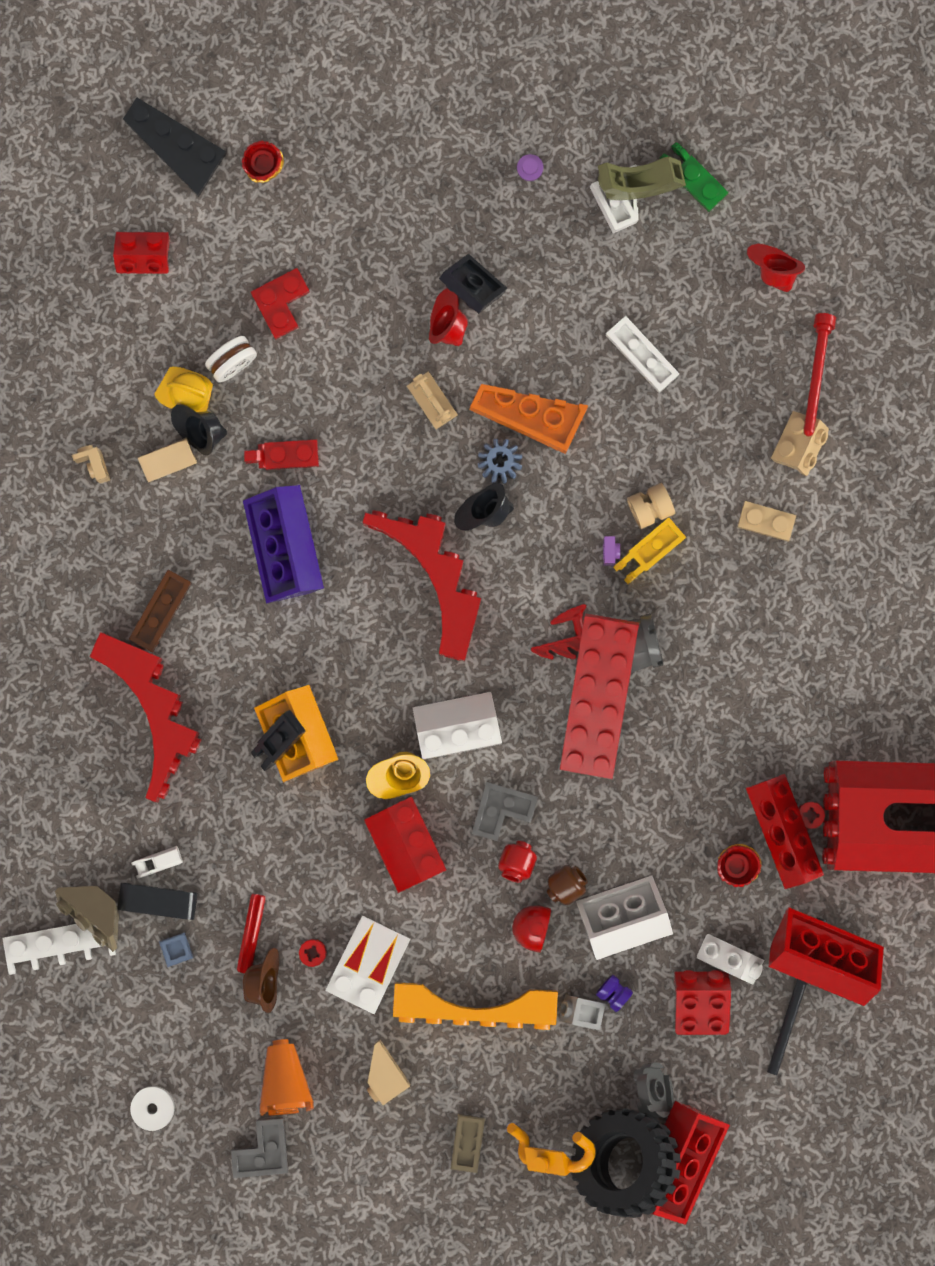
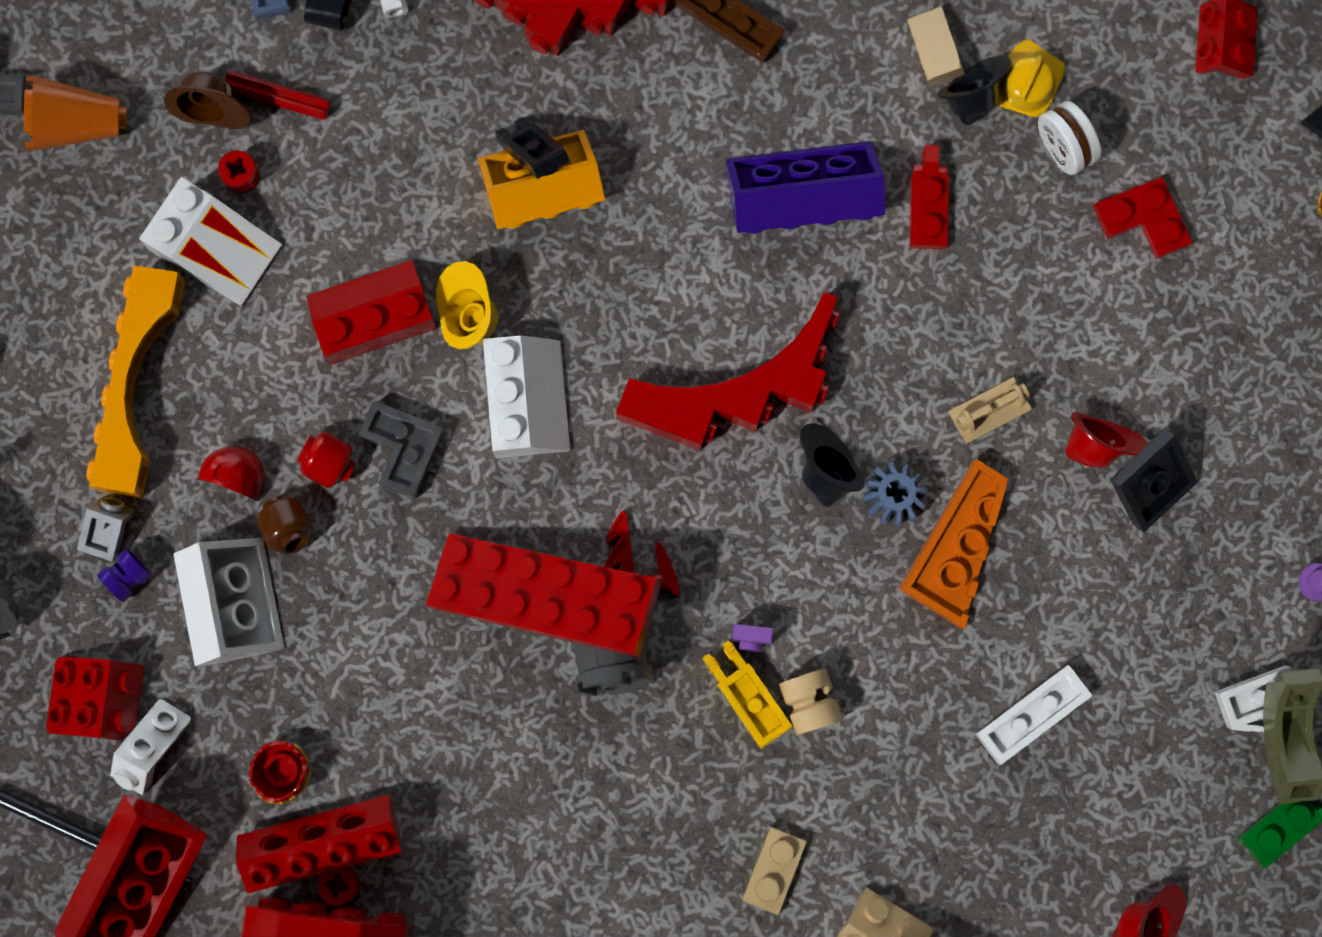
camera: 90 degrees right, 5 degrees down
(385, 1076) = (58, 251): tan slope -> none

